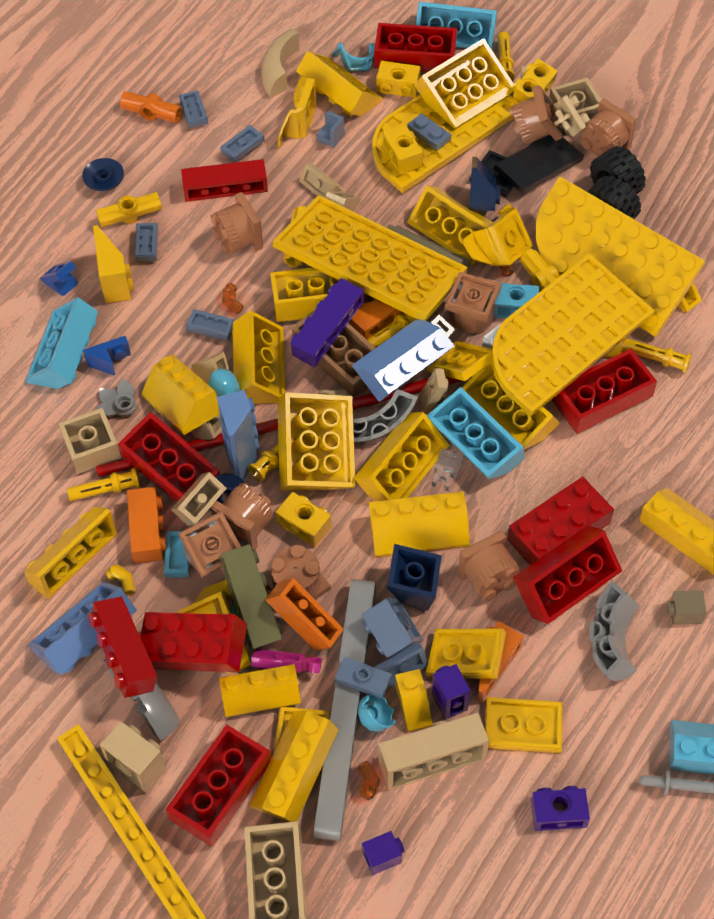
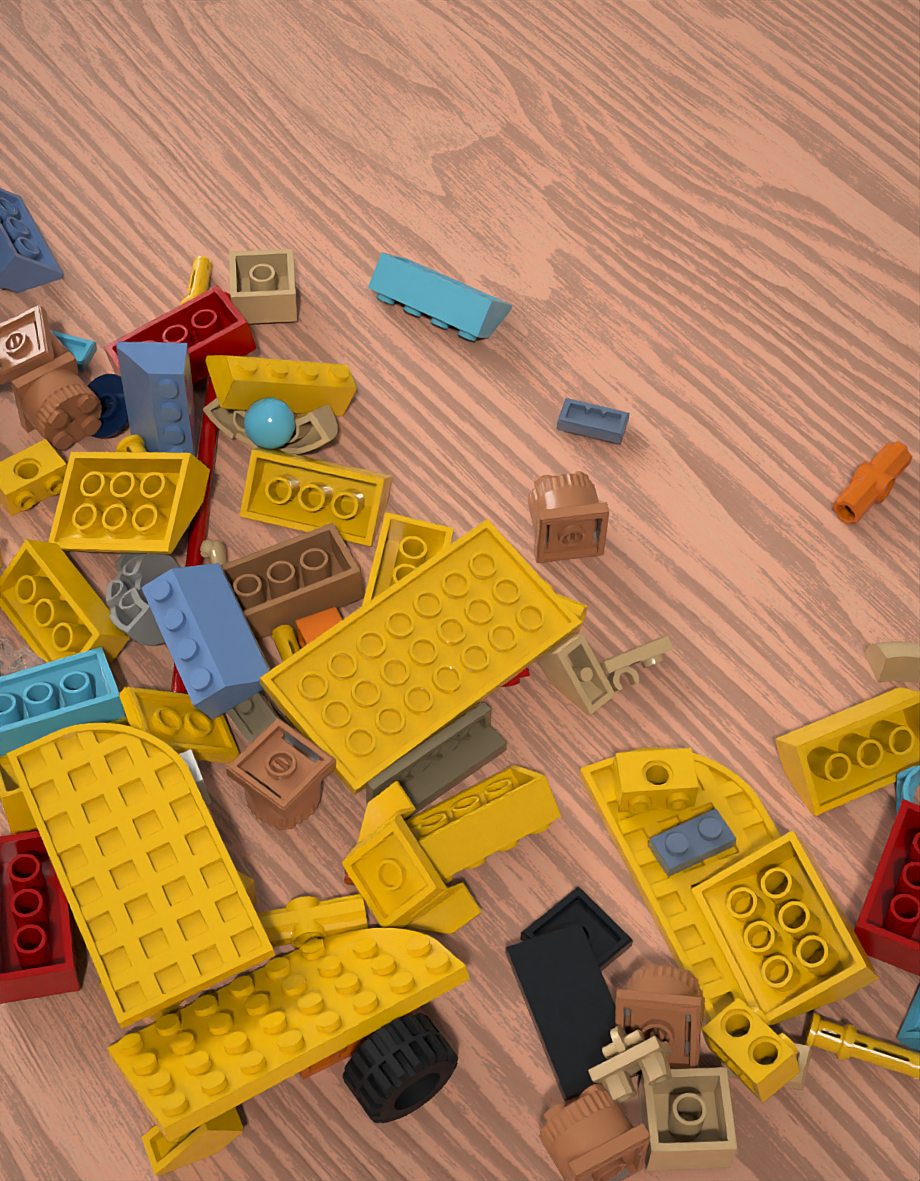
camera: 105 degrees right, 5 degrees down
(60, 277) = (561, 315): blue slope -> none
(71, 551) = (111, 241): yellow slope -> none
(102, 355) = (398, 334): blue slope -> none
(103, 174) = (742, 395): dark blue dish -> none
(112, 269) = (549, 356): yellow slope -> none
(115, 400) = (326, 338): light grey plate -> none
(124, 576) = (55, 290): yellow arm -> none
(128, 209) = (661, 411): yellow piece -> none
(146, 525) = (105, 315): orange brick -> none
(193, 109) = (855, 536): sand blue plate -> none
(198, 499) = (87, 343): tan brick -> none
(210, 325) = (408, 457): sand blue plate -> none
(224, 180) = (682, 537): red brick -> none
(229, 298) = (448, 493): clear orange arm -> none
(242, 143) = (757, 580): sand blue plate -> none
(299, 120) = (803, 671): yellow piece -> none
(327, 322) = (310, 553): dark purple brick -> none
(333, 129) = (748, 709): sand blue panel -> none
(397, 79) = (856, 825): yellow brick -> none
(434, 391) = (144, 672): tan plate -> none
(483, 188) = (522, 869): dark blue slope -> none
(512, 298) = (277, 838): medium azure brick -> none
(620, 164) = (467, 1108): black tyre -> none
(666, 357) = (56, 1050): yellow pin -> none

